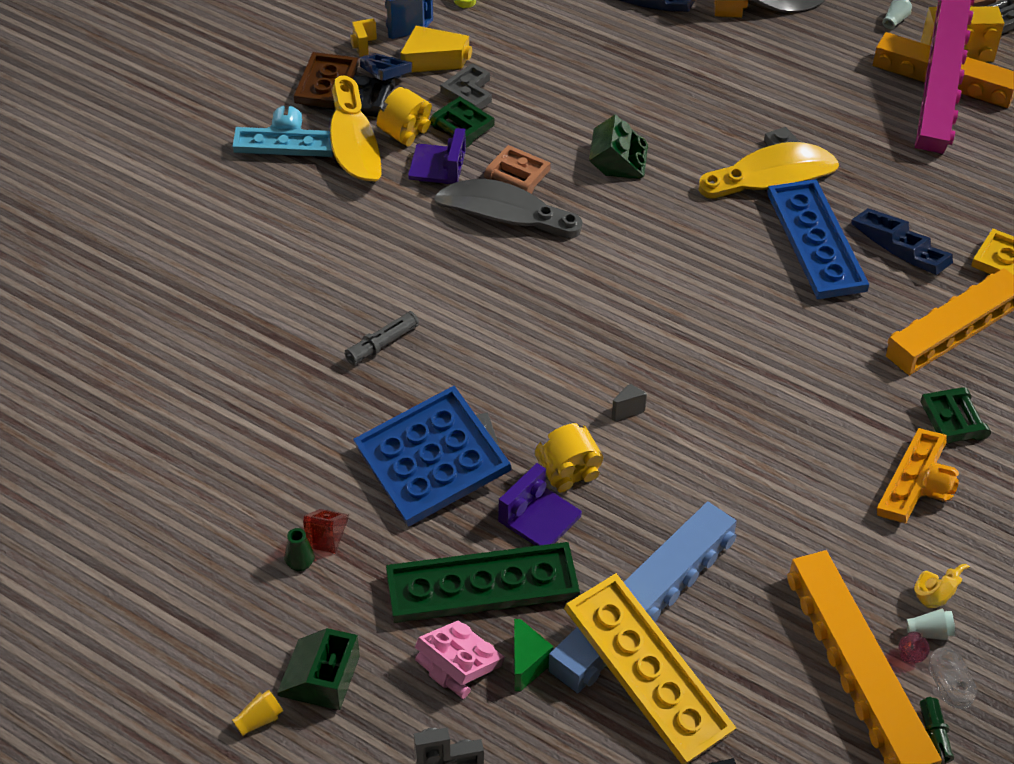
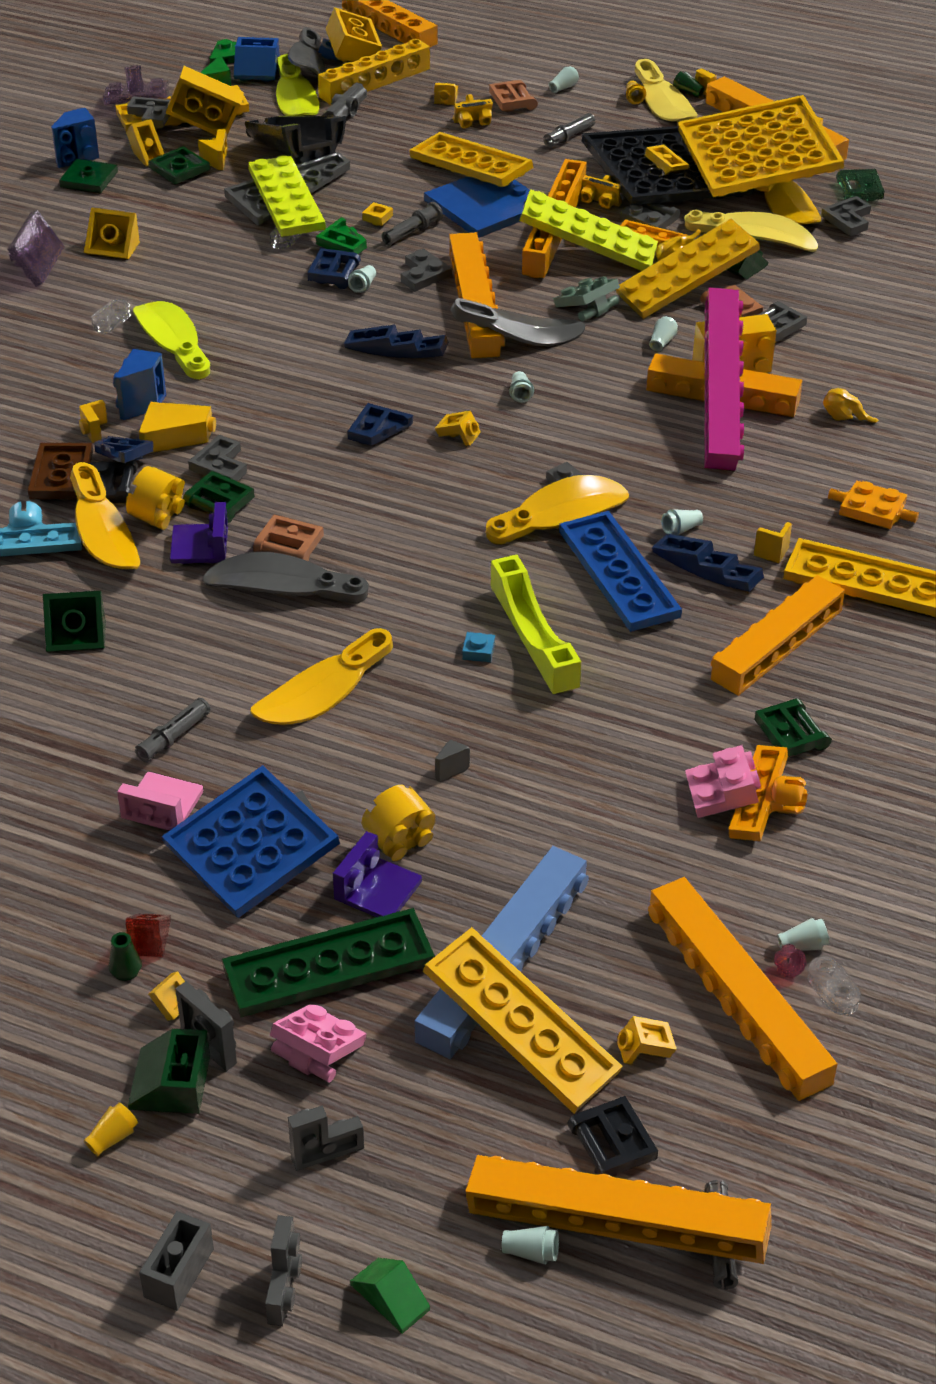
camera: 10 degrees left, 5 degrees down
(312, 223) = (74, 621): none -> dark green slope
(335, 593) = (165, 995): none -> yellow plate
(355, 620) = (199, 1013): none -> dark grey plate
(357, 404) = (158, 800): none -> bright pink bracket
(524, 312) = (324, 683): none -> yellow plant
(530, 654) = (393, 1026): green slope -> none
(617, 69) = (377, 424): none -> dark blue wing
(618, 149) = (393, 505): dark green slope -> none
(673, 295) = (478, 647): none -> dark azure plate
(693, 79) = (459, 424): none -> yellow bracket
(737, 310) = (552, 656): none -> neon yellow arch
(755, 50) = (521, 388): none -> light aqua cone
(763, 703) = (645, 1037): none -> yellow bracket
(880, 461) = (724, 783): none -> bright pink plate
(883, 197) = (679, 521): none -> light aqua cone
(936, 727) = (826, 1034): dark green axle -> none
(937, 592) = (803, 904): yellow piece -> none
(966, 232) = (771, 544): none -> yellow panel

